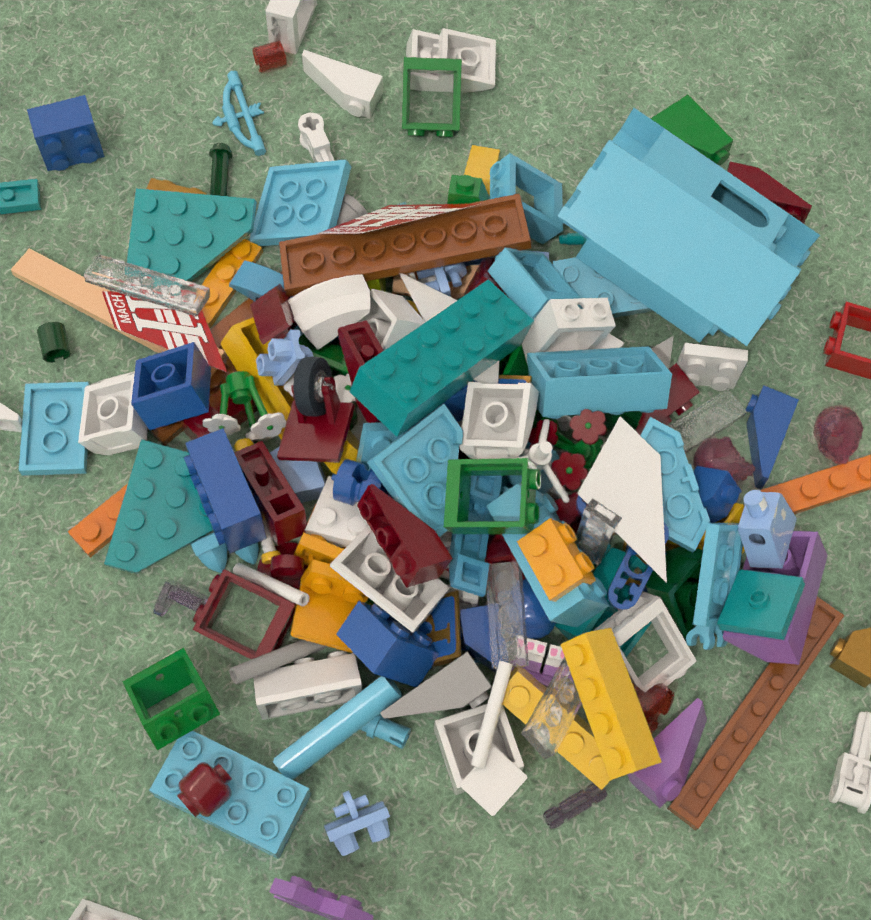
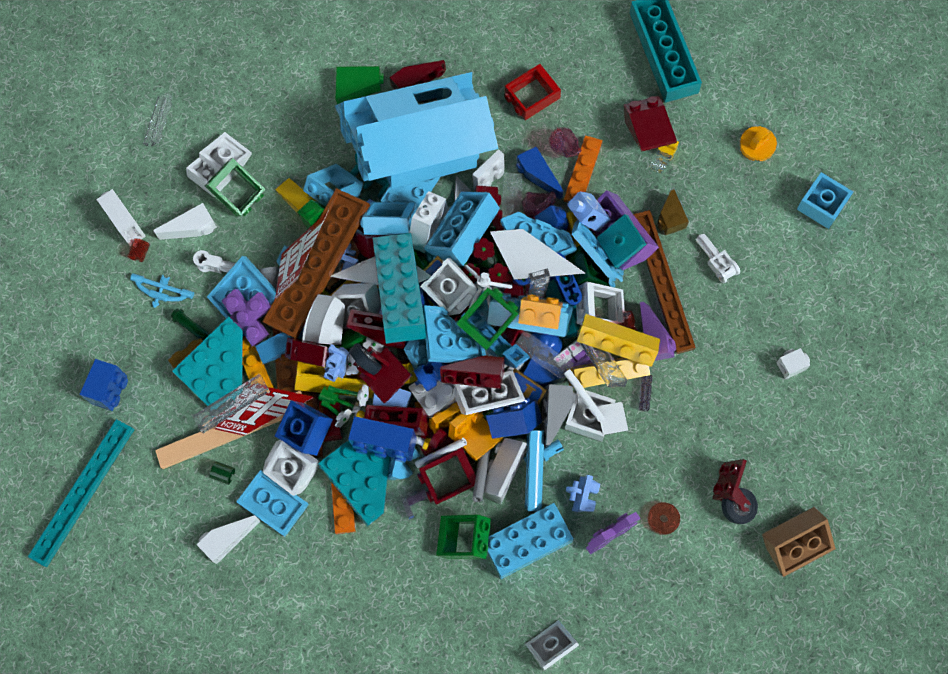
camera: 45 degrees left, 5 degrees up
(205, 789) = (522, 548): dark red head -> none
(278, 221) = (247, 314): none -> medium lavender plate

